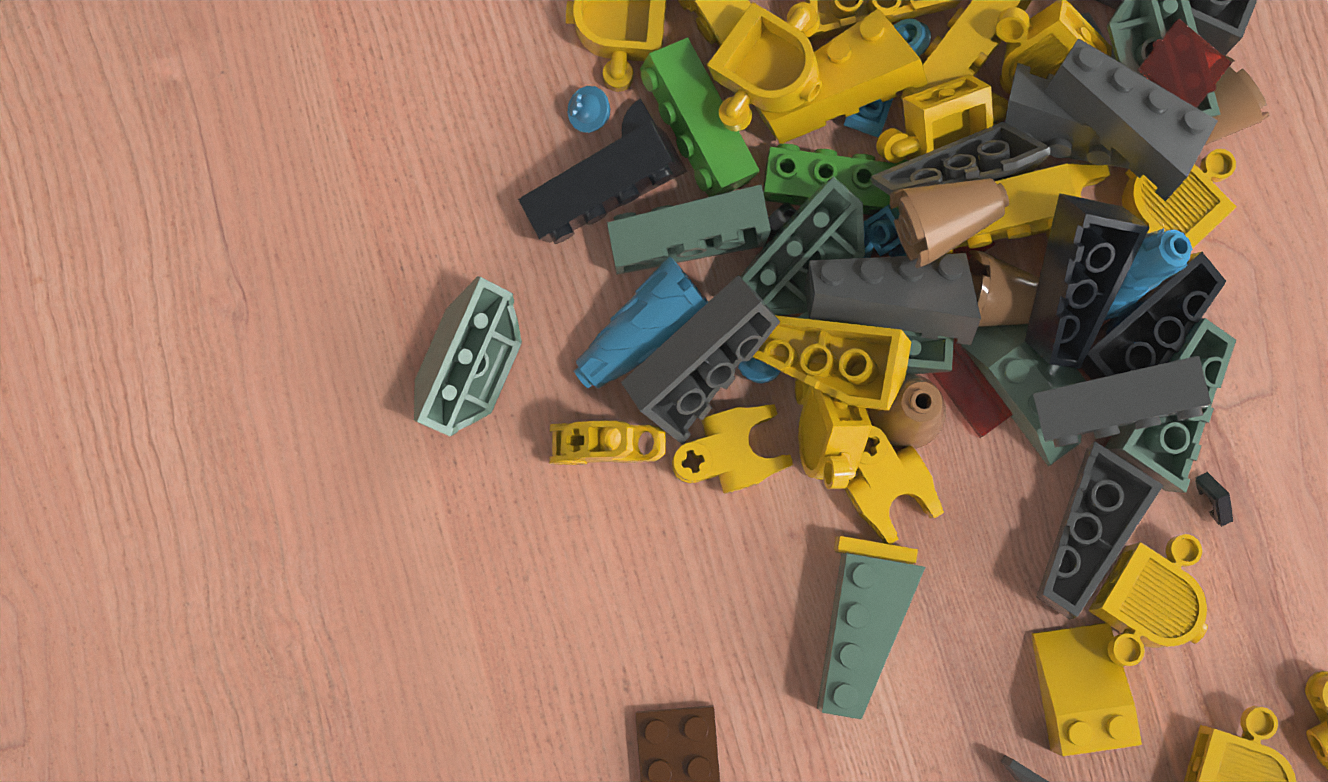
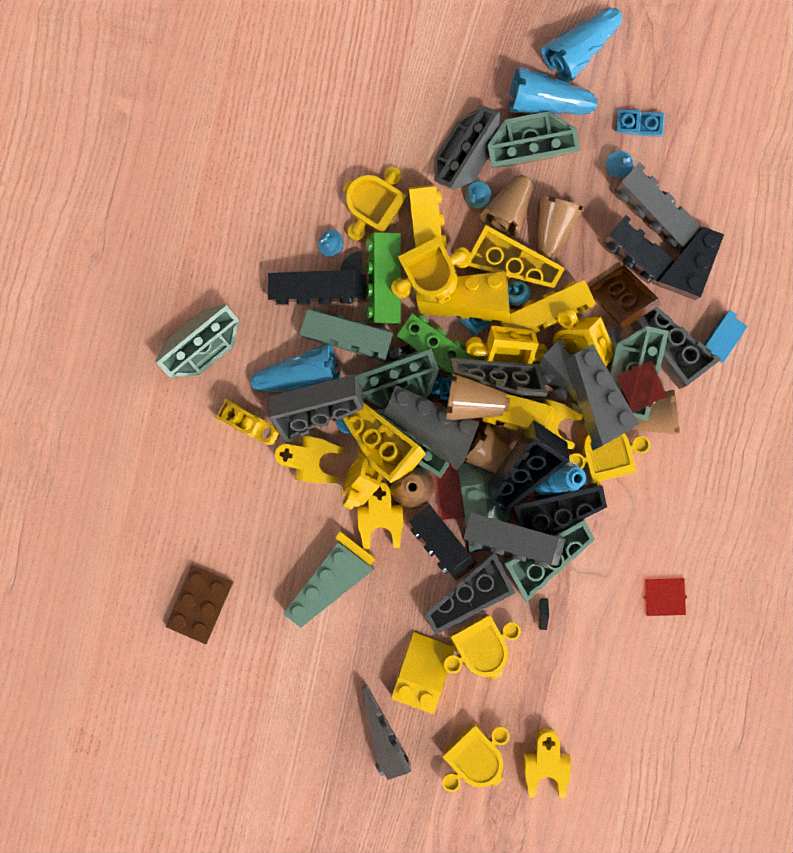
camera: 30 degrees right, 5 degrees up
(1004, 470) = (442, 543): none -> black wedge

